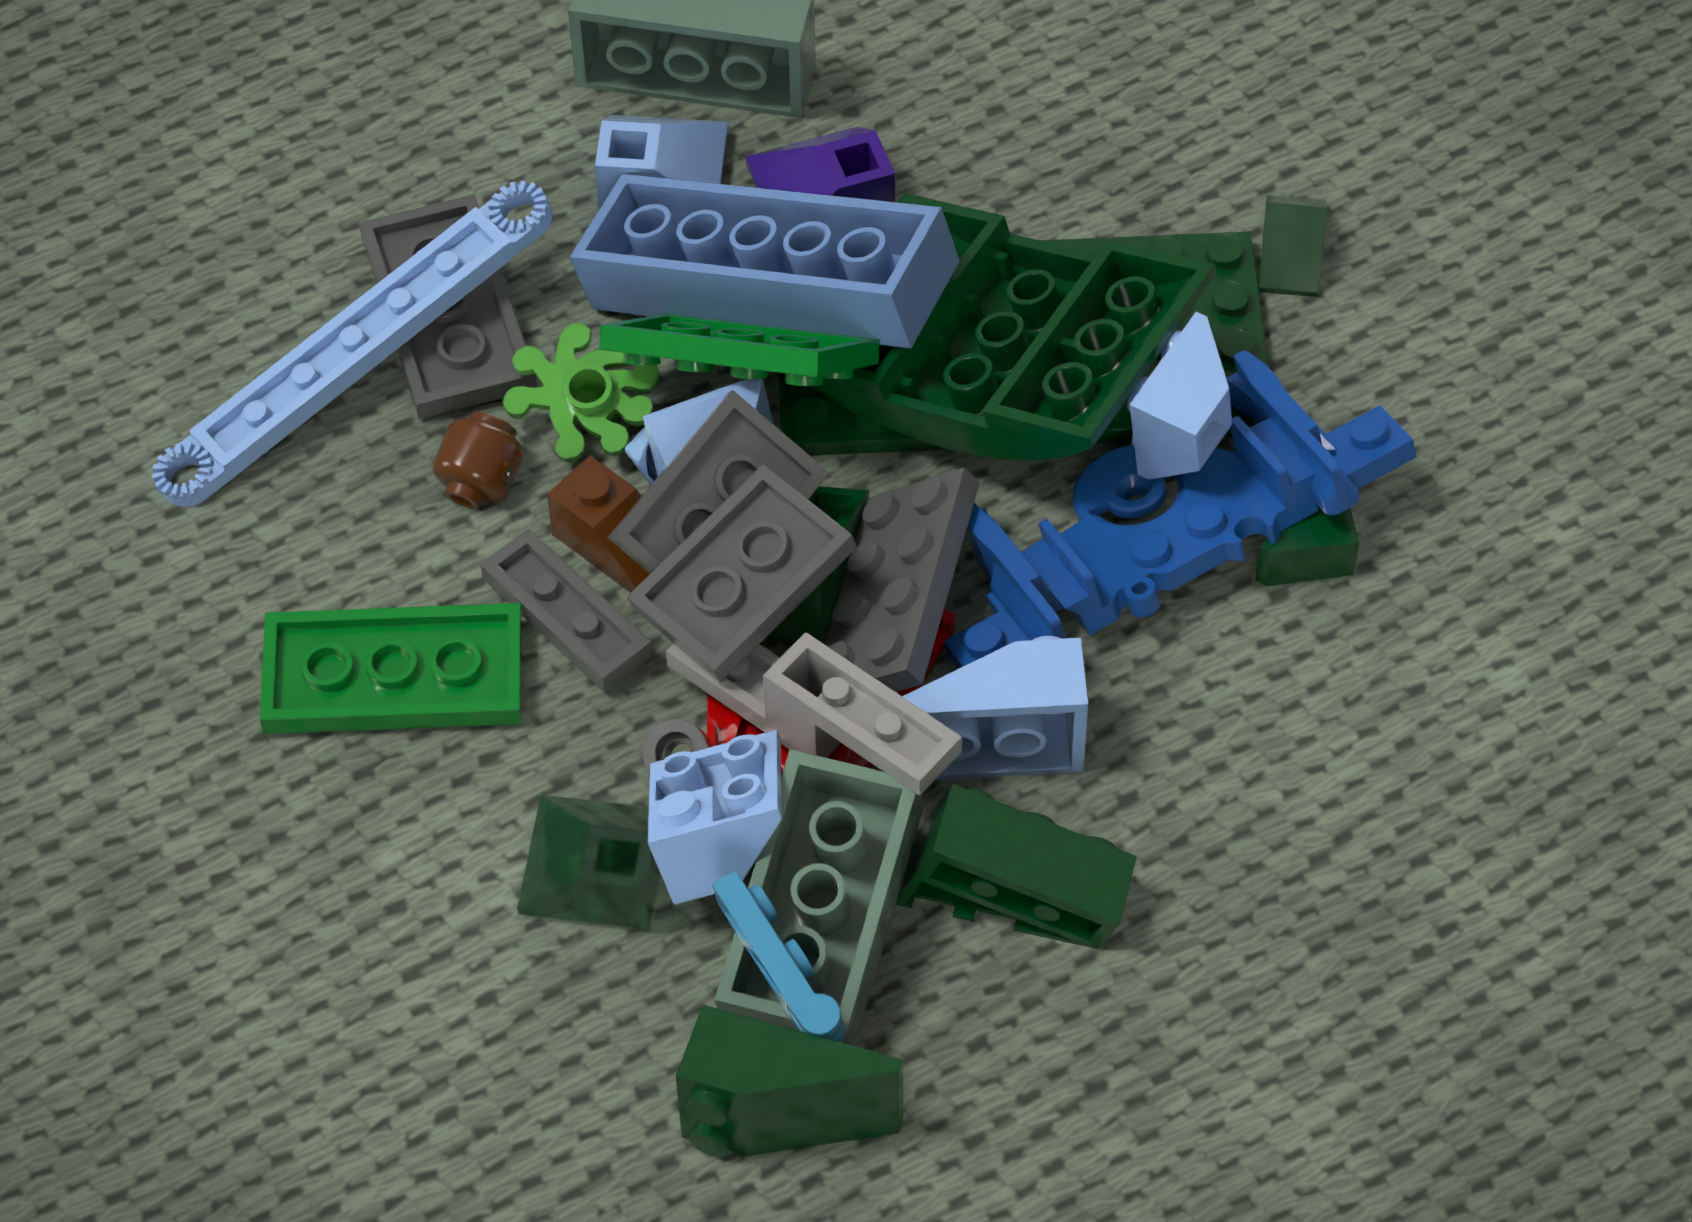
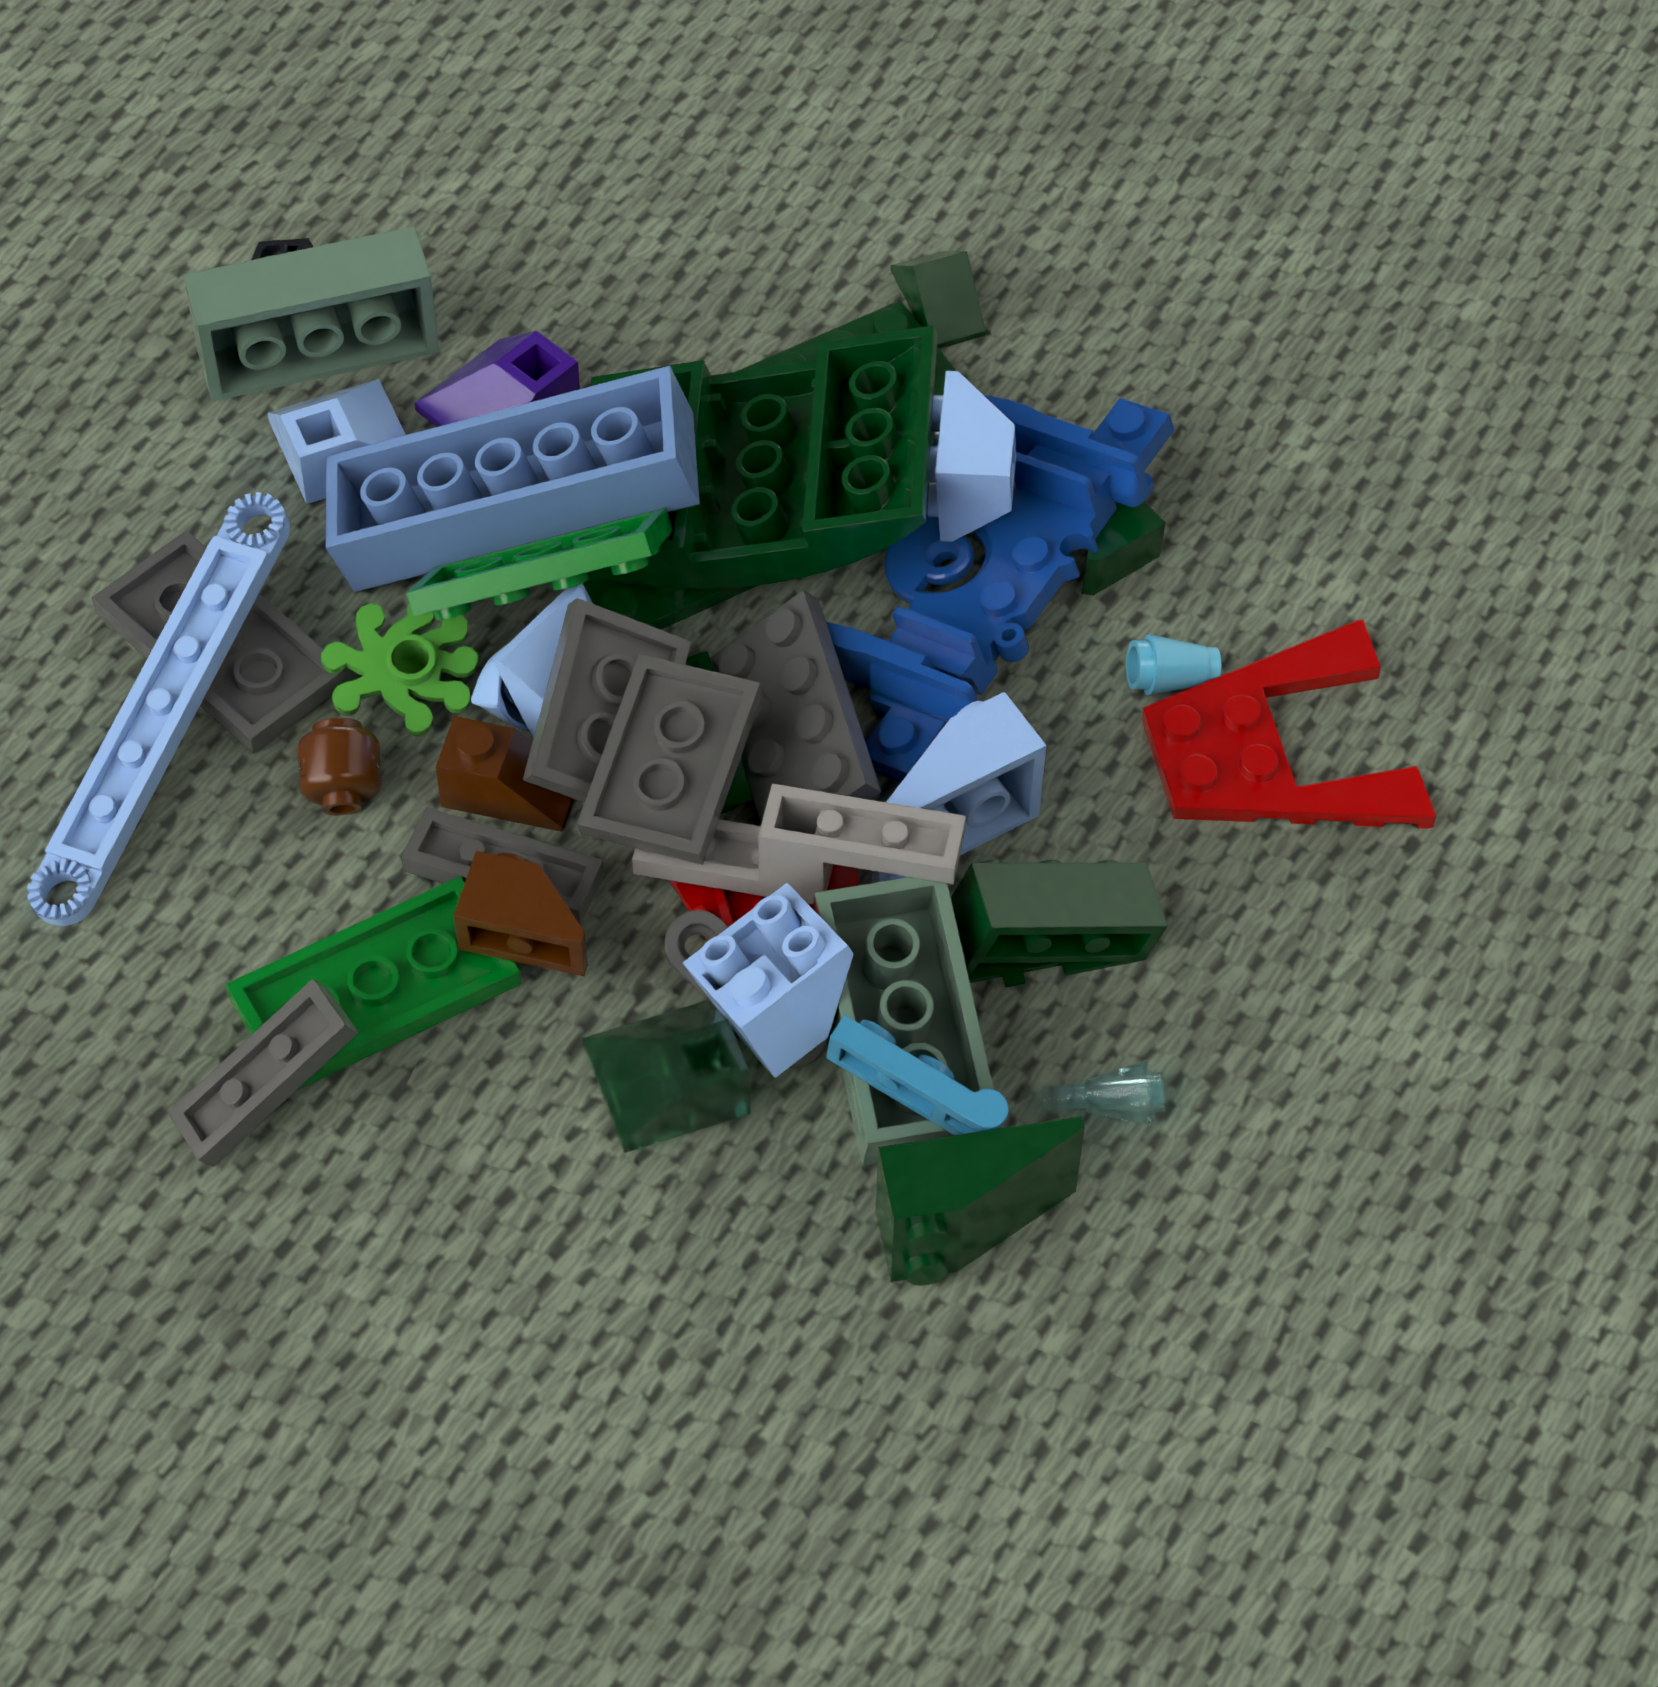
camera: 30 degrees left, 0 degrees up
(242, 703) = (262, 1072): none -> dark grey plate
(534, 656) = (518, 915): none -> reddish brown slope
(994, 1063) = (1121, 1094): none -> clear light blue cone
(1291, 682) = (1169, 664): none -> medium azure cone
(1294, 784) = (1228, 762): none -> red wing

